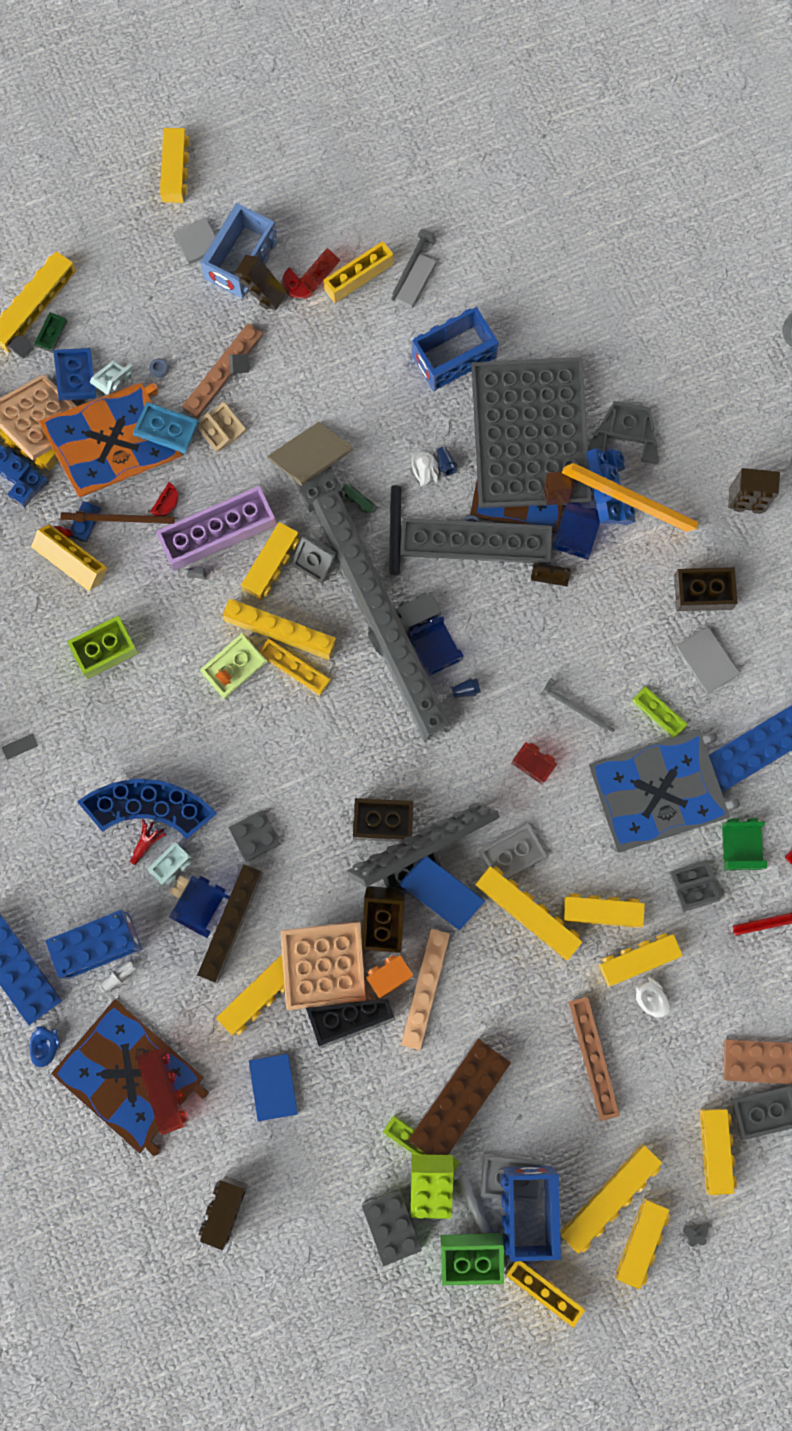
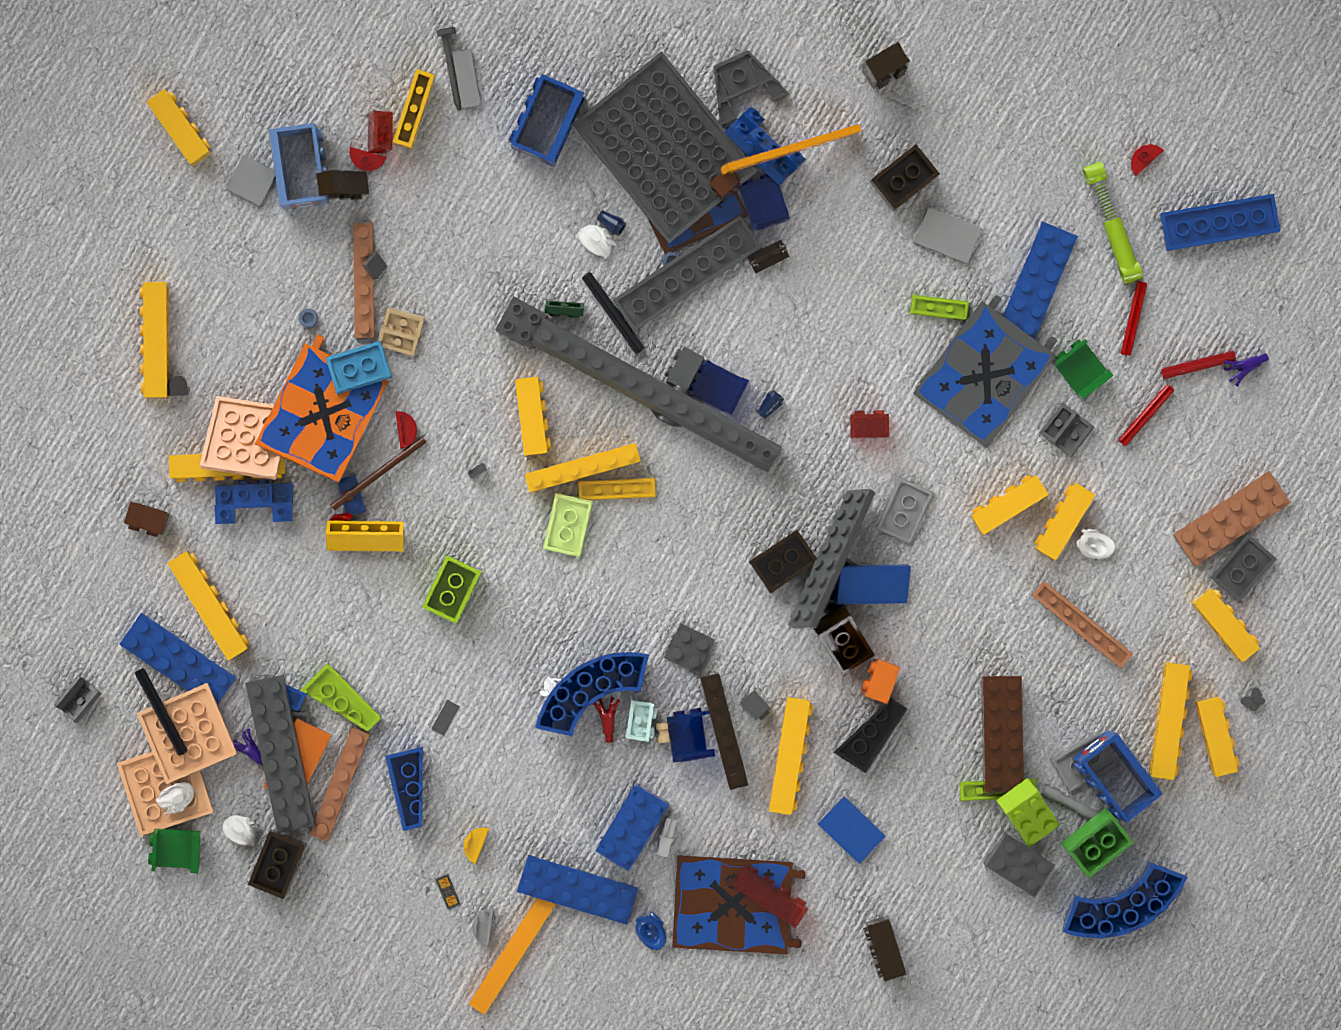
camera: 35 degrees left, 10 degrees up
(50, 332) = (193, 355): dark green plate -> none
(74, 374) = (244, 377): blue plate -> none
(111, 377) = (278, 358): light aqua bracket -> none
(216, 528) = (467, 422): lavender brick -> none
(224, 677) = (569, 541): orange plate -> none
(271, 922) = (755, 705): none -> dark grey brick
(310, 453) = (496, 301): dark tan piece -> none
(313, 558) = (566, 389): dark grey tile -> none
(322, 965) = (822, 709): light nougat plate -> none
(425, 989) = (913, 667): light nougat plate -> none
(455, 1339) = (1127, 909): none -> blue brick
(528, 913) = (951, 550): yellow brick -> none
(545, 1292) = (1168, 825): yellow brick -> none
(548, 690) = (865, 354): dark grey piece -> none

